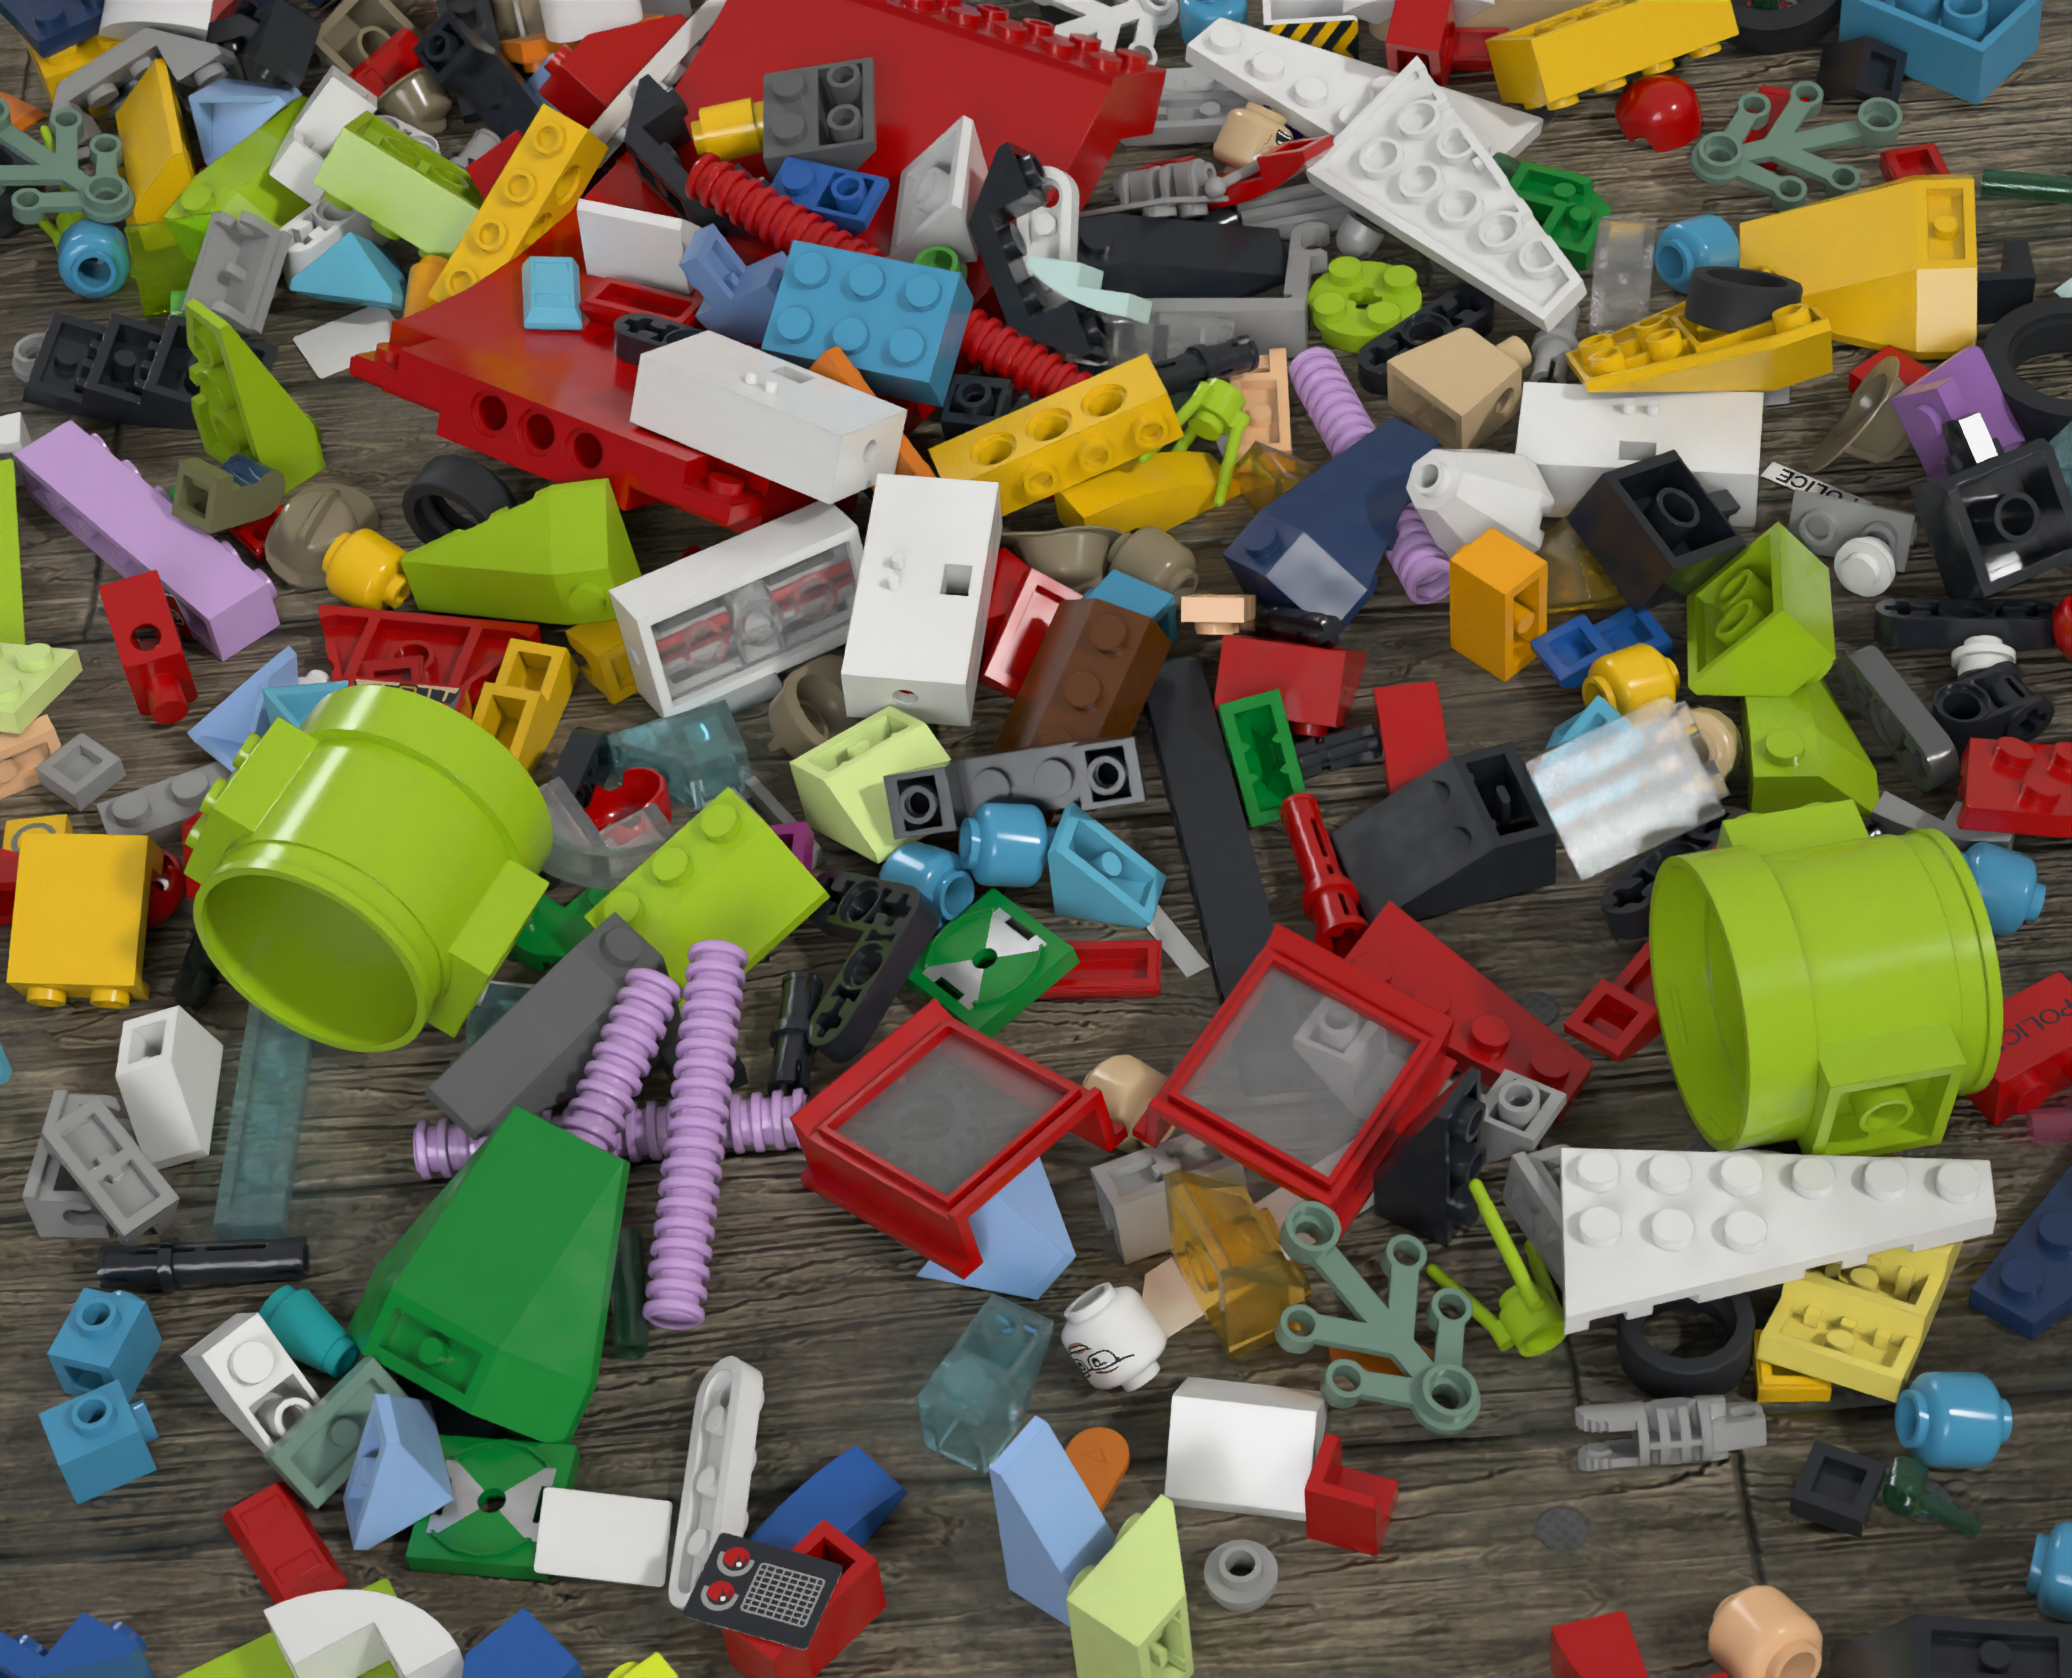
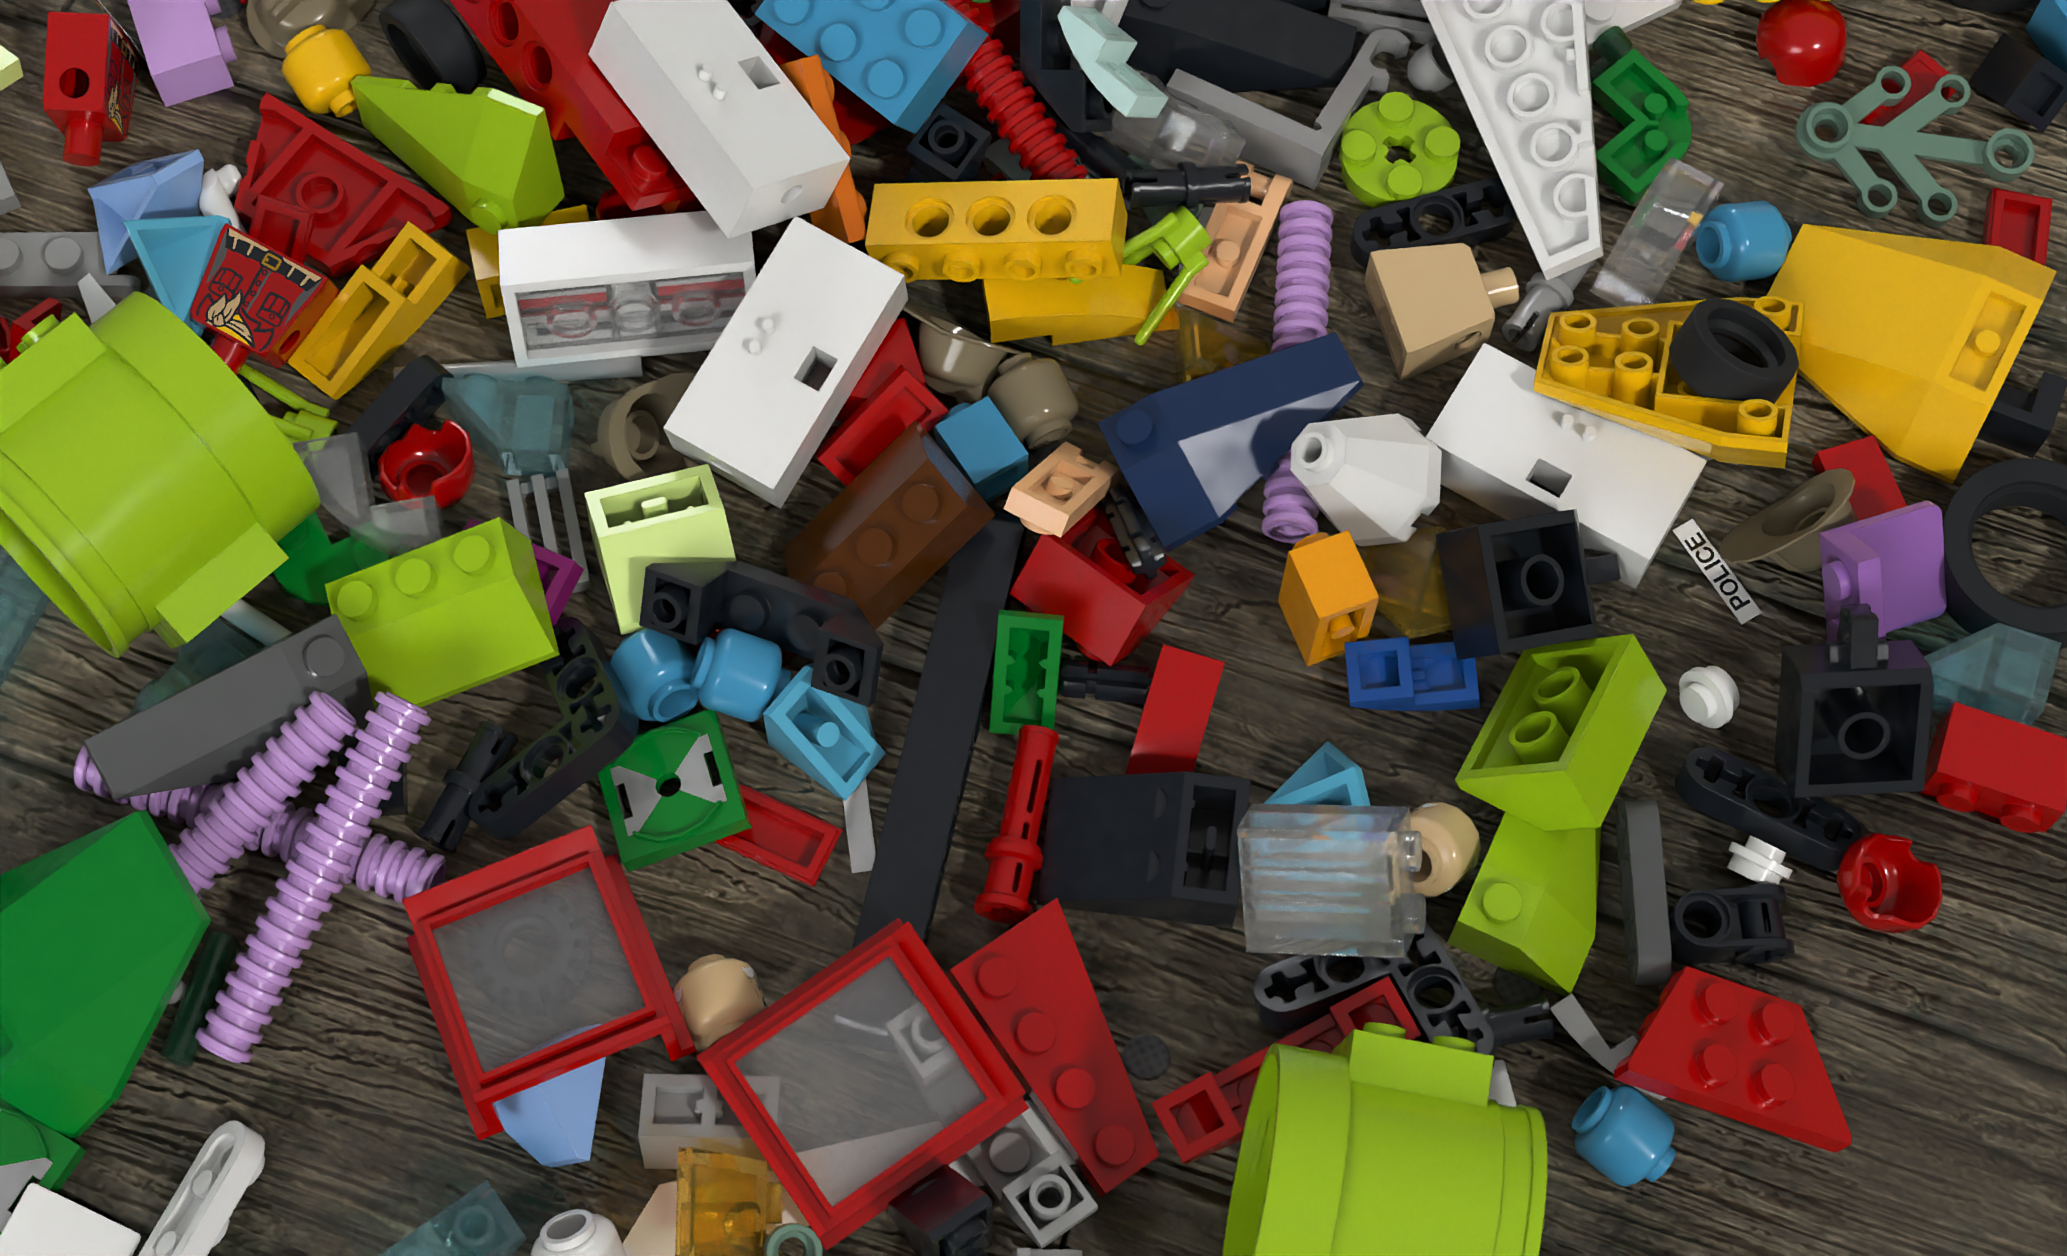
camera: 15 degrees right, 20 degrees up
(1631, 677) = (1409, 745): yellow head -> none
(1829, 522) = (1704, 636): light grey hinge -> none

